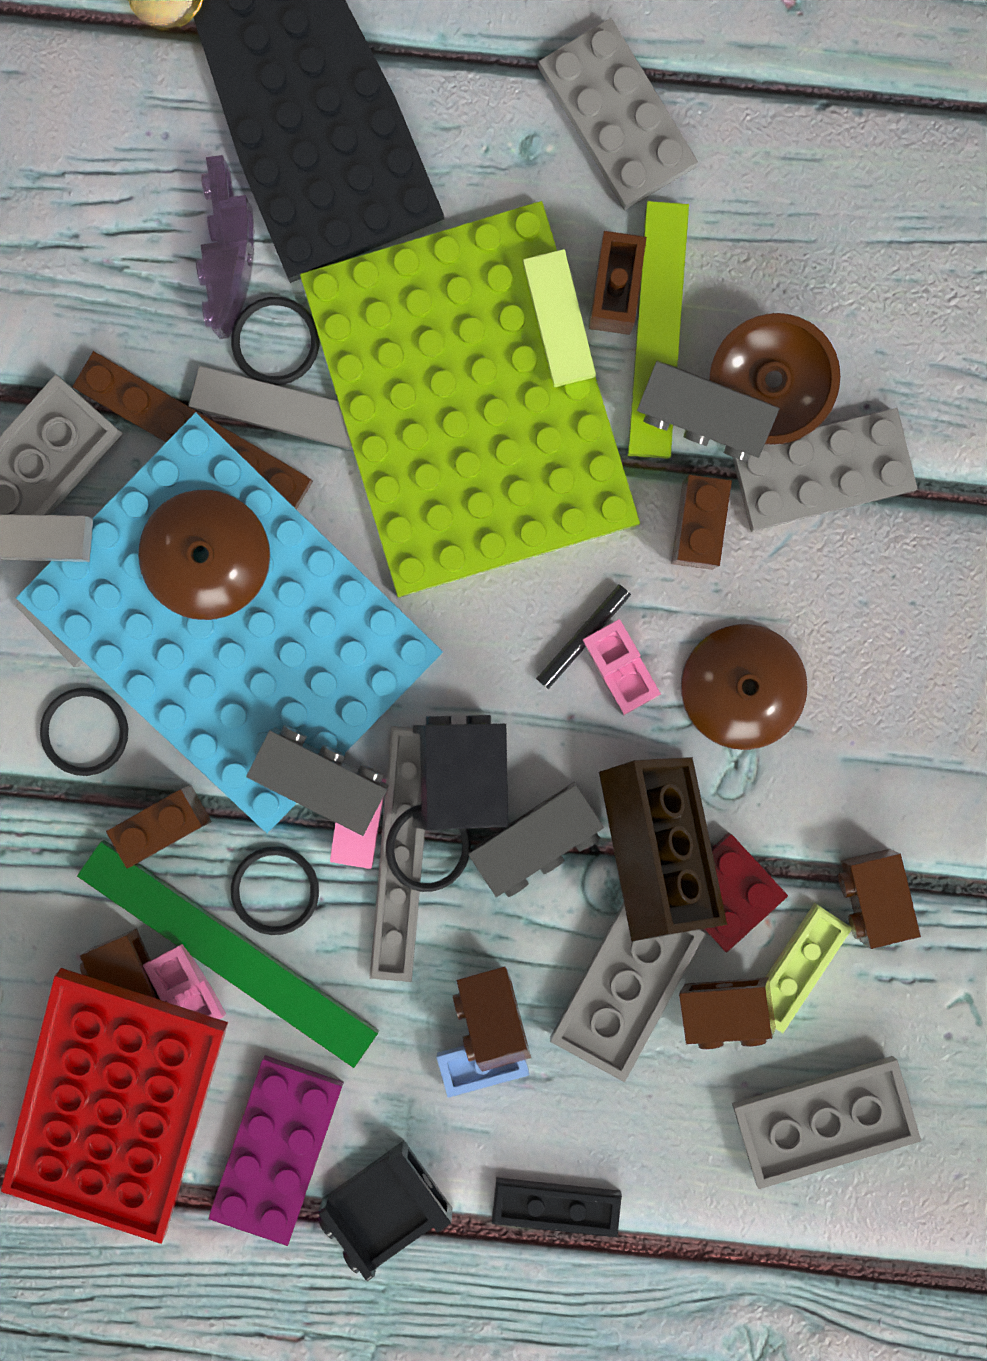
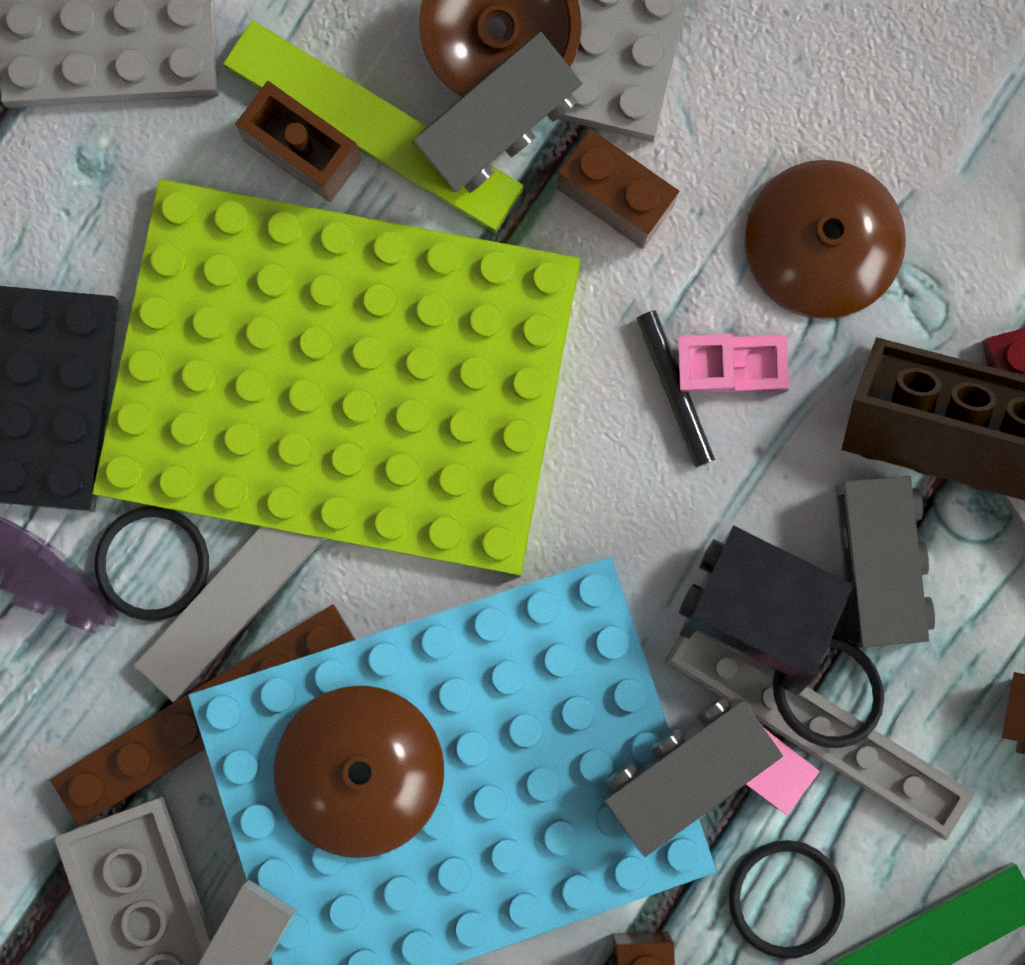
camera: 60 degrees left, 5 degrees down
(559, 318) = (303, 226): yellowish green tile -> none

